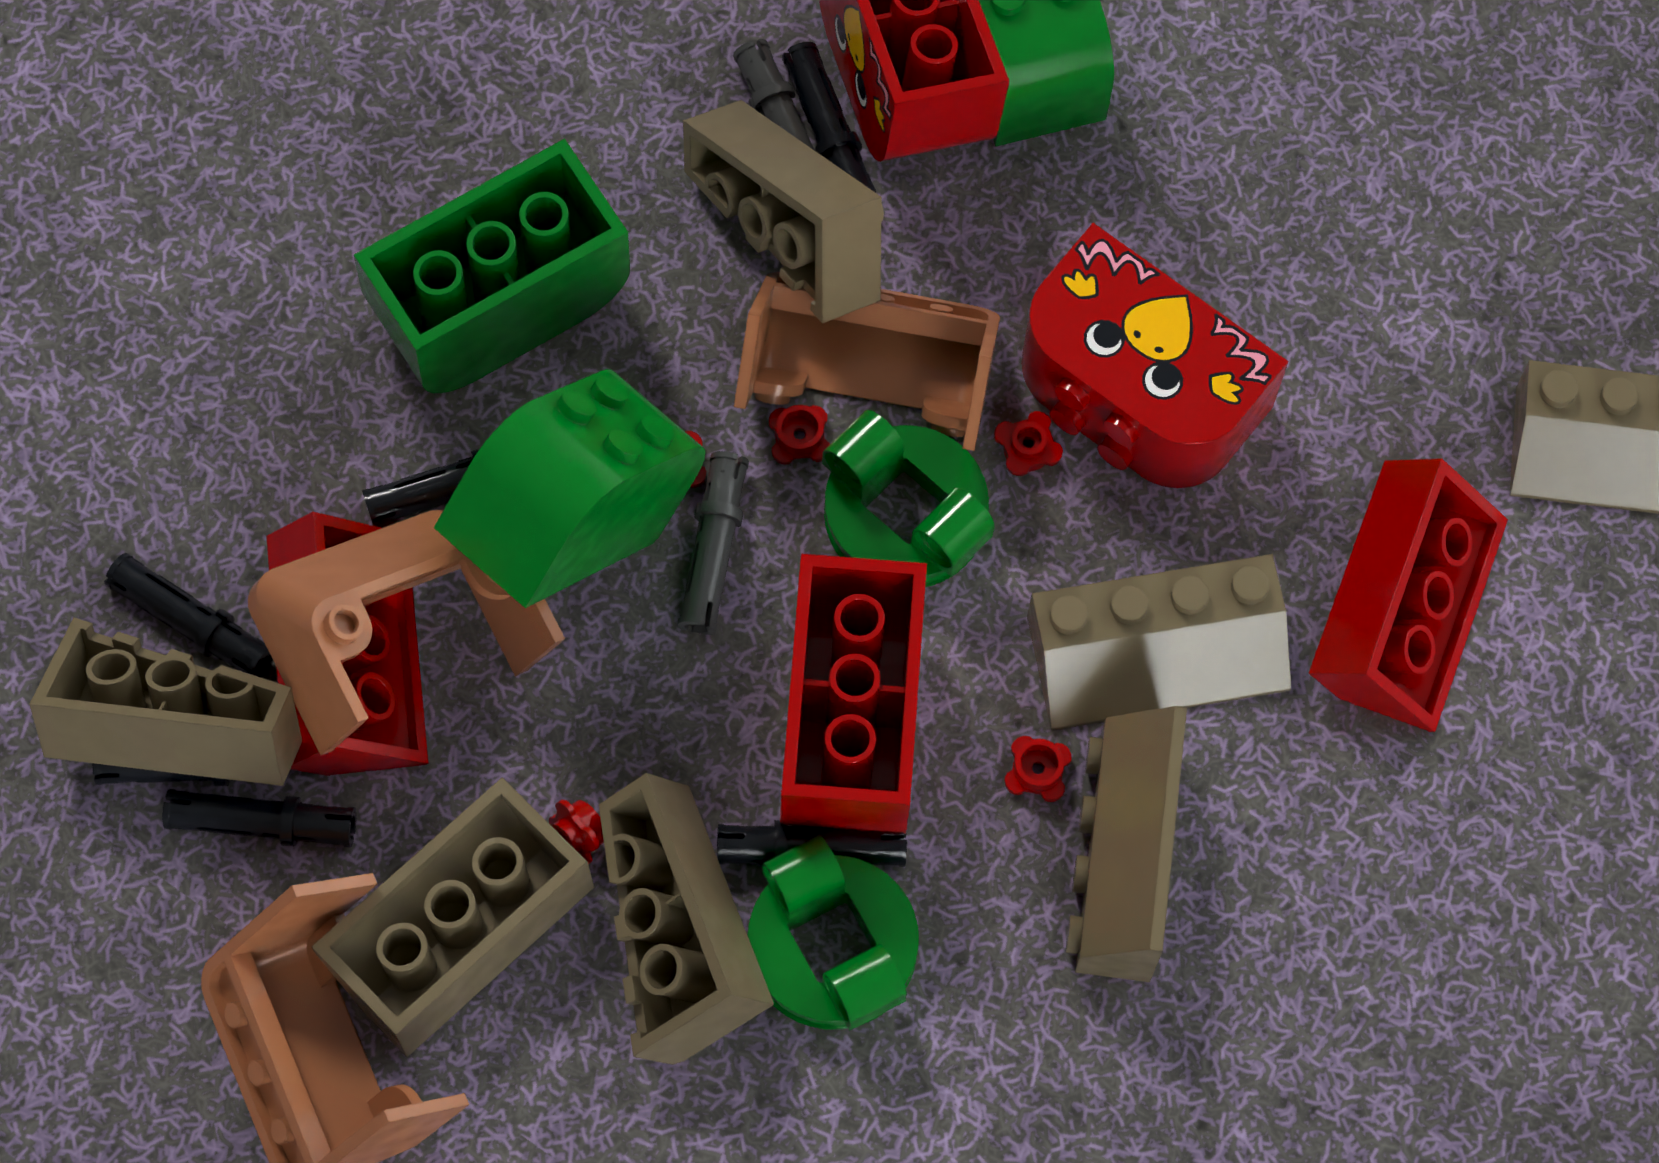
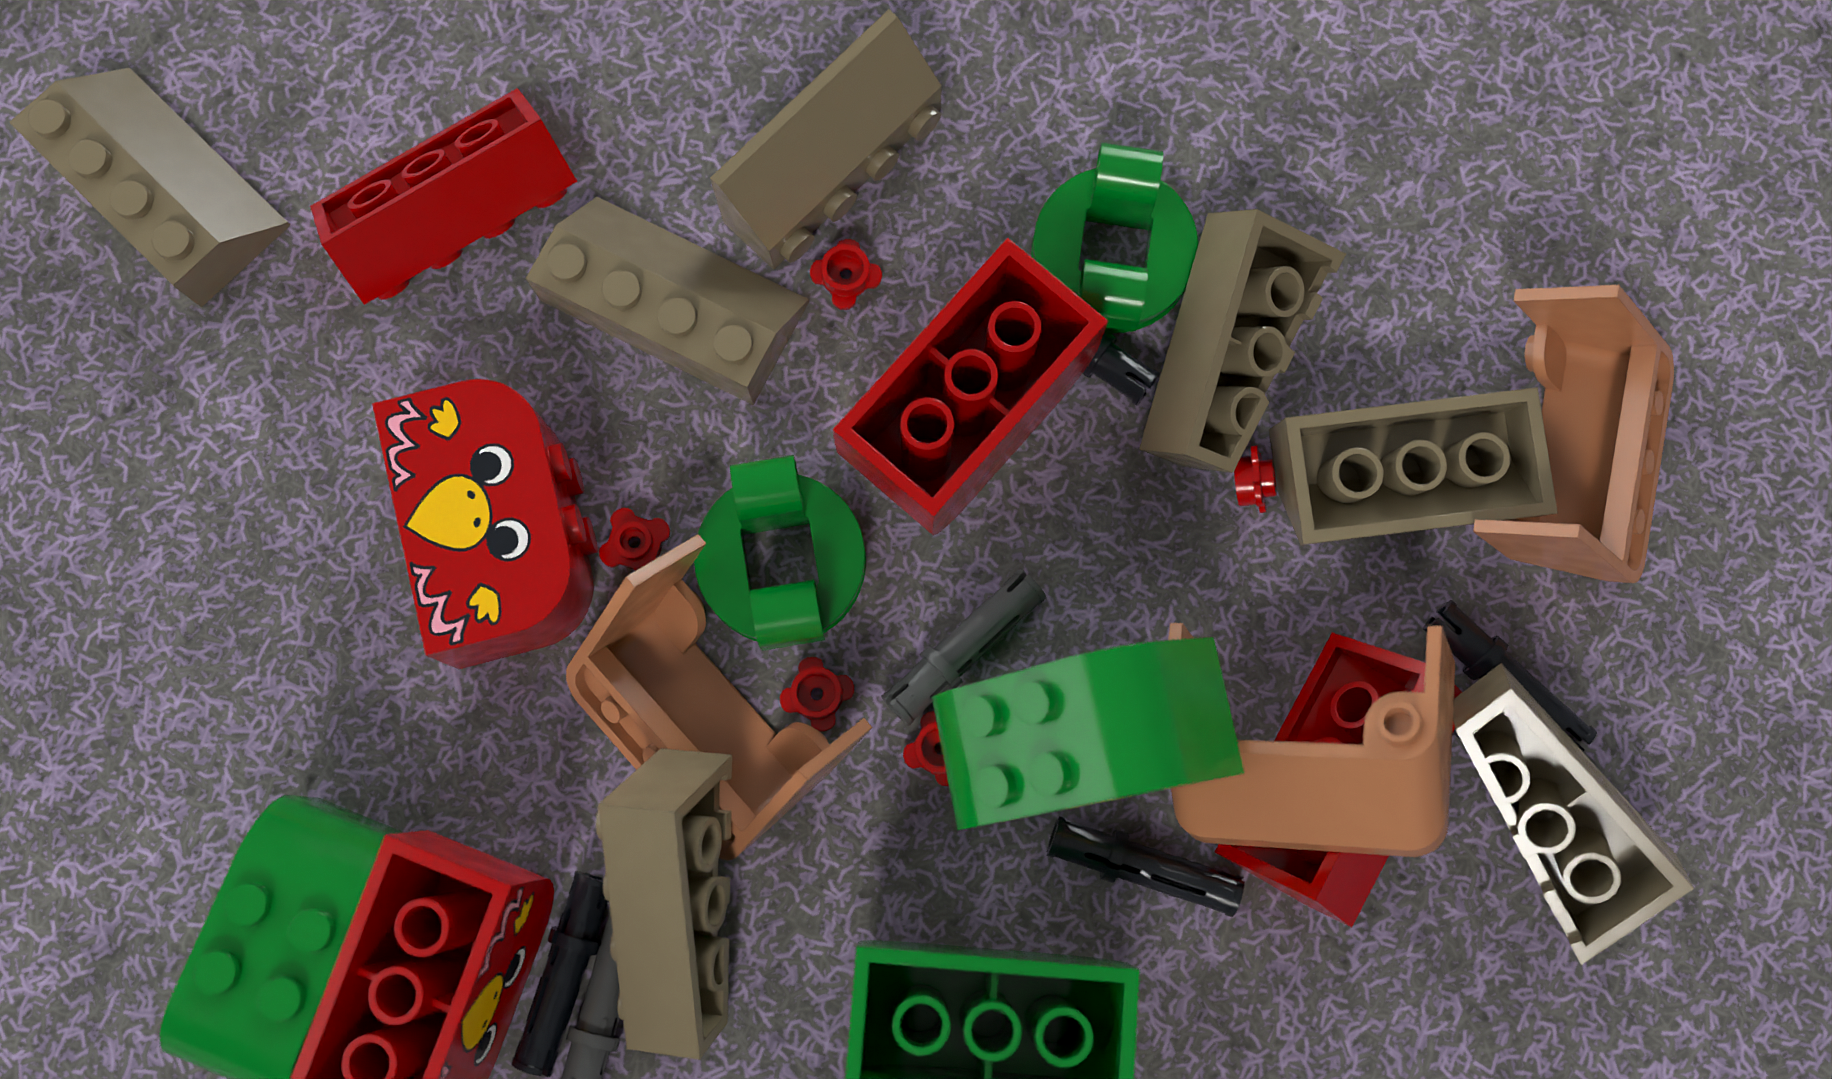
camera: 140 degrees left, 10 degrees up
(209, 629) = (1465, 923): black pin -> none

